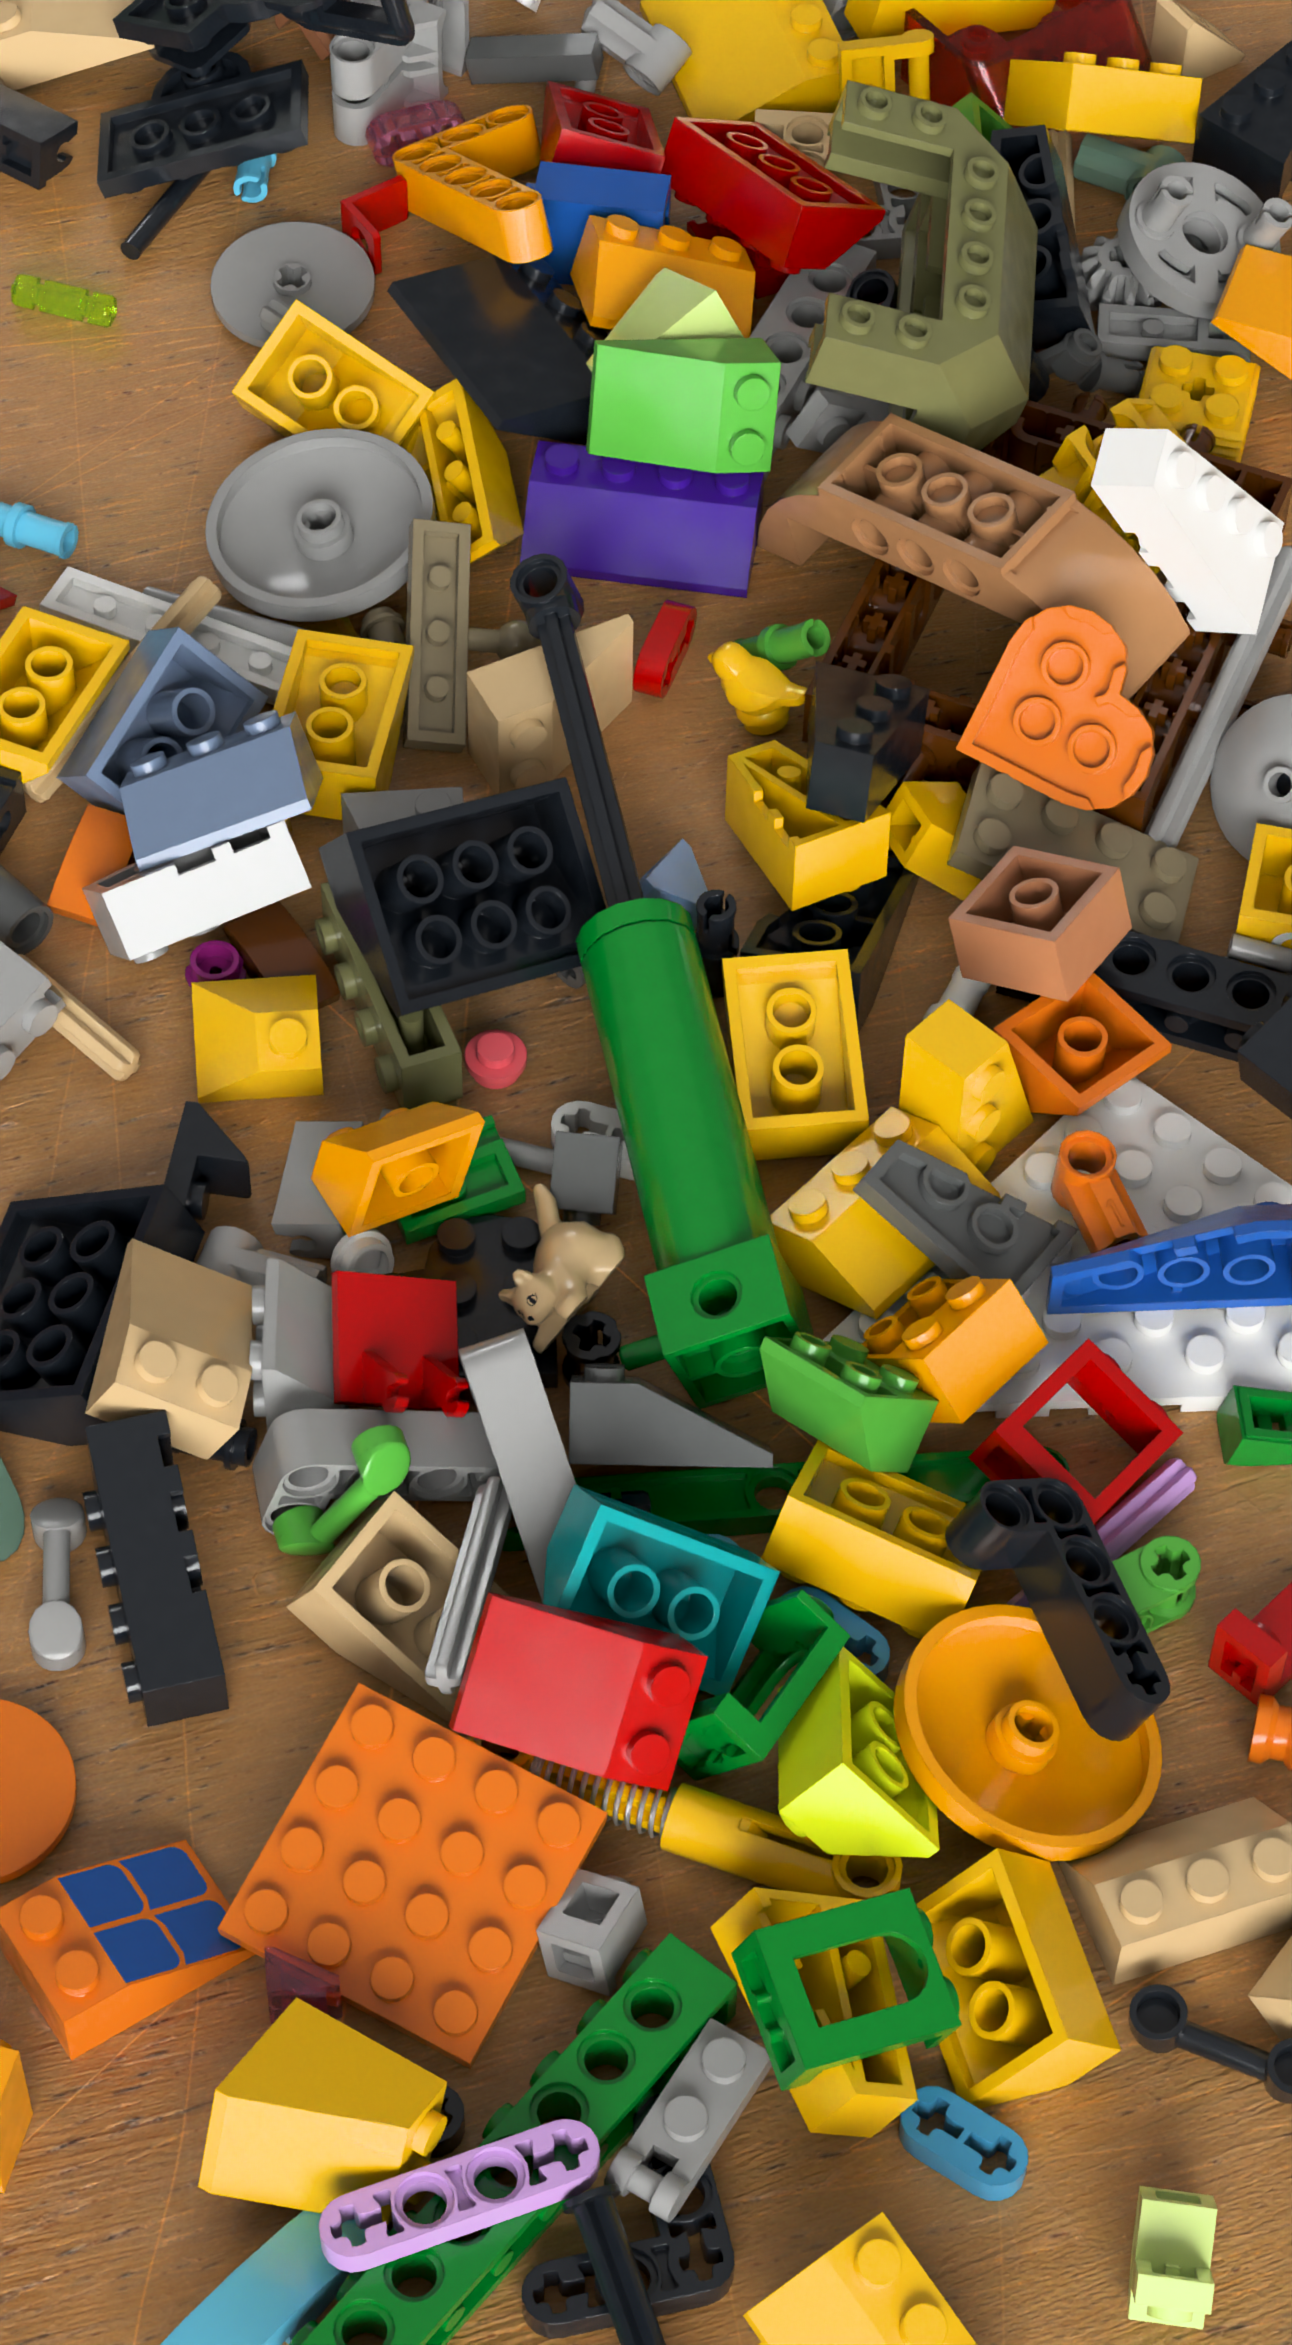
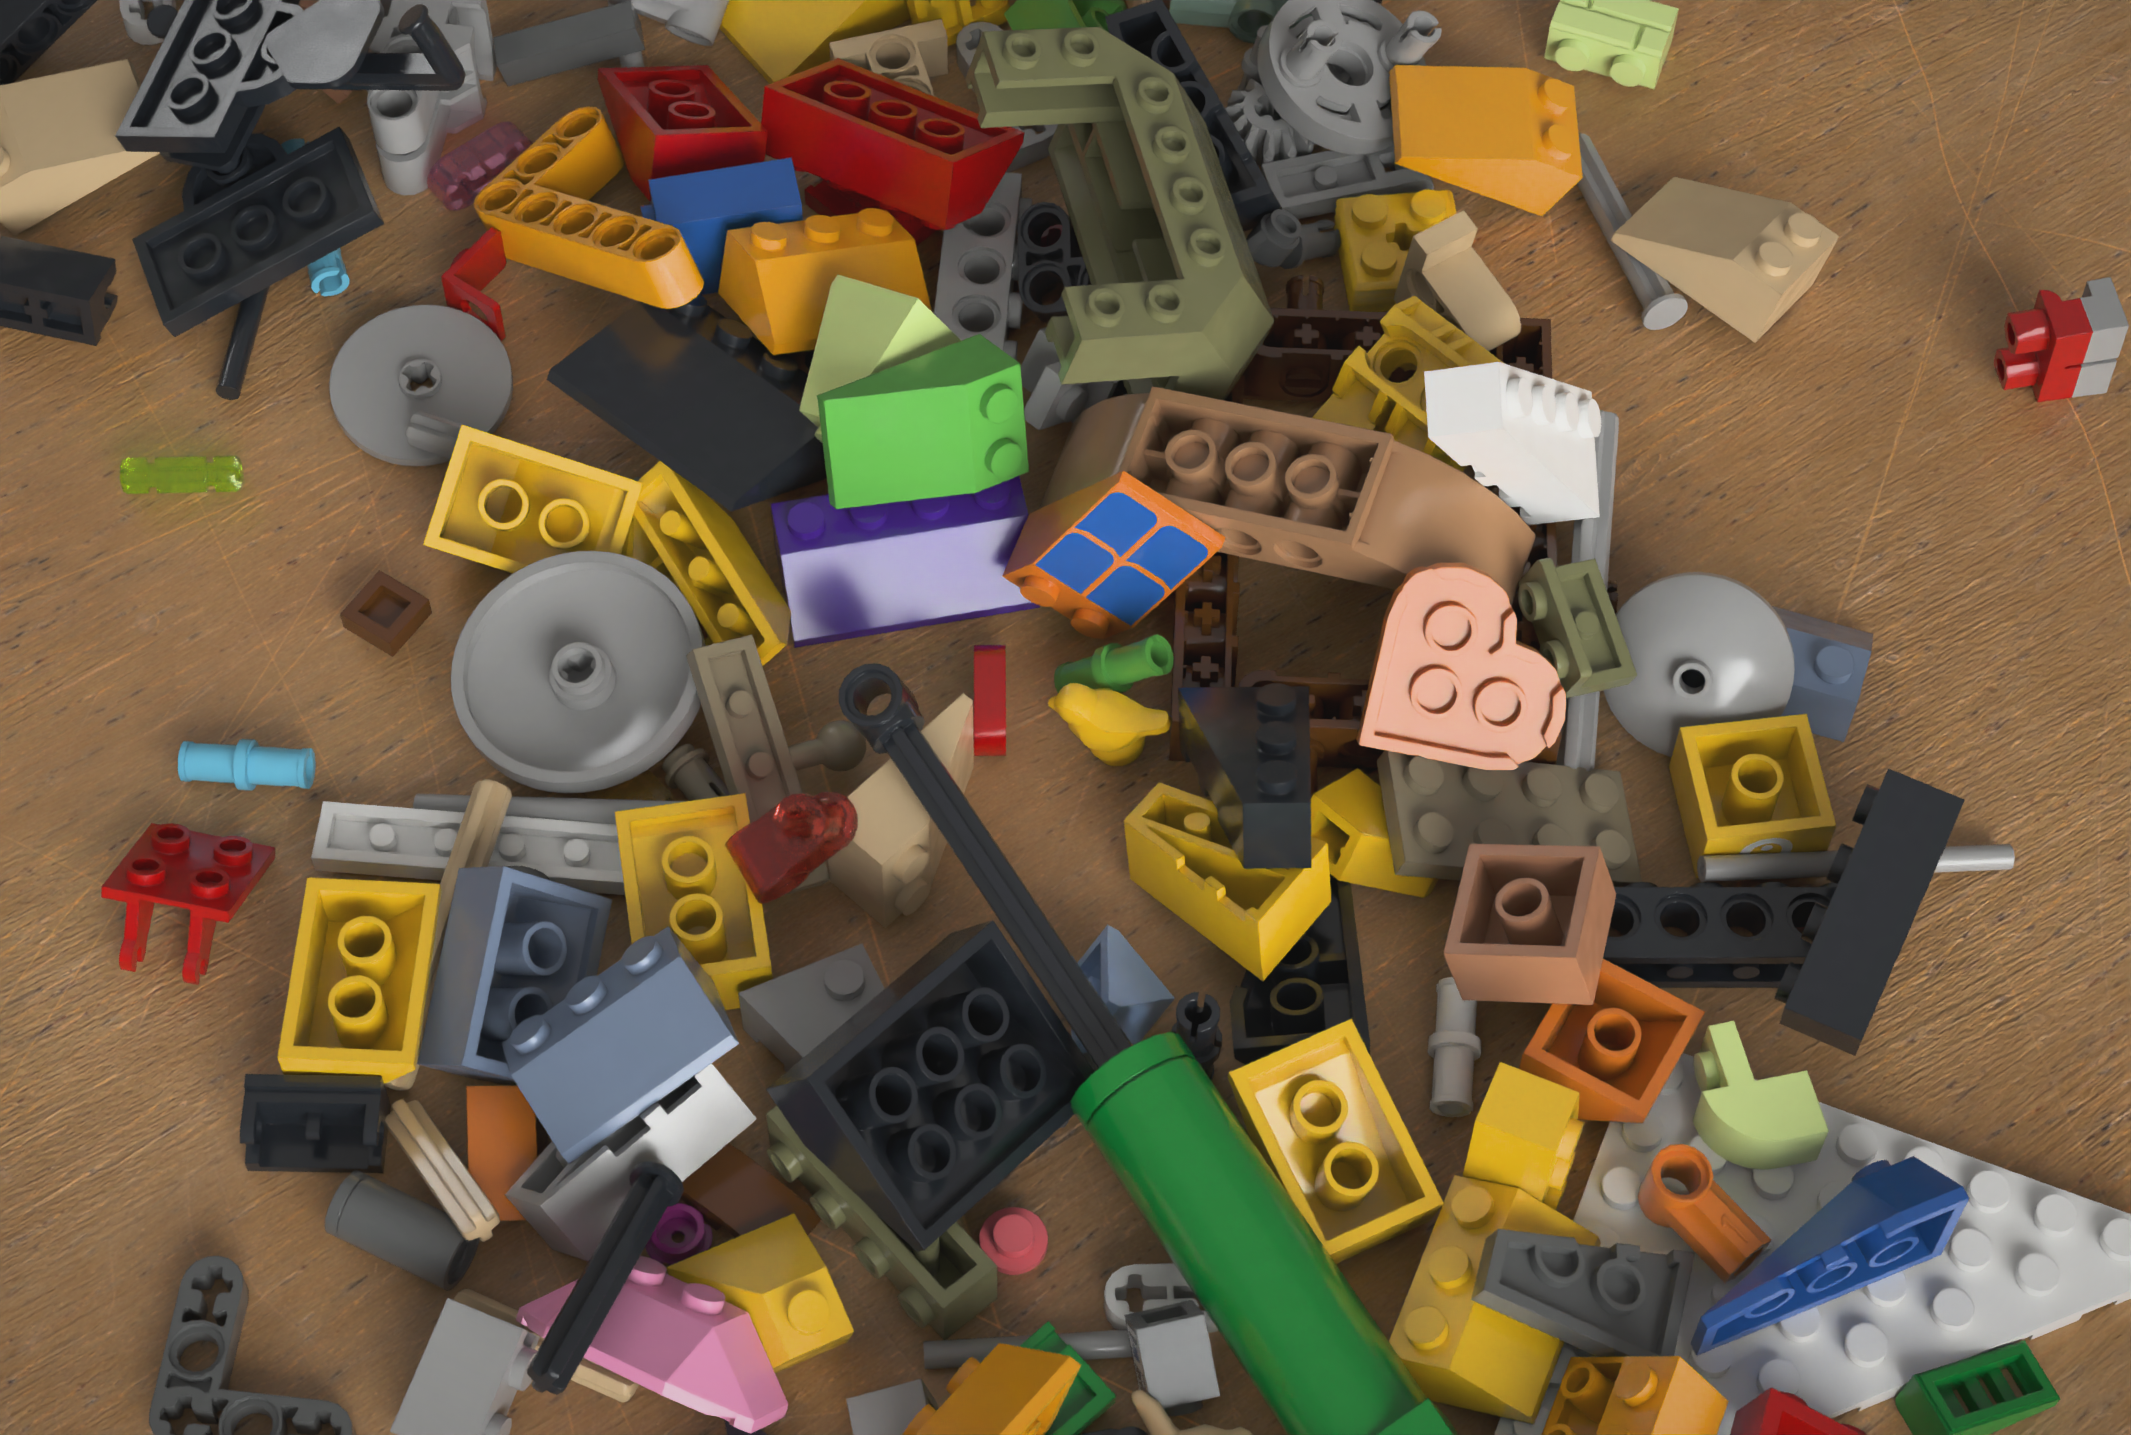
camera: 20 degrees left, 5 degrees up
(40, 858) = (442, 1170): none -> tan axle
(166, 1025) = (680, 1345): none -> bright pink wedge
(184, 445) = (386, 613): none -> reddish brown plate
(195, 912) = (567, 1341): none -> black axle
(429, 682) = (792, 842): none -> clear red piece
(807, 547) = (1108, 554): none -> slope
(1180, 1143) = (1753, 1121): none -> yellowish green brick
(1193, 713) = (1576, 626): none -> olive bracket
(1210, 415) = (1457, 284): none -> tan tile

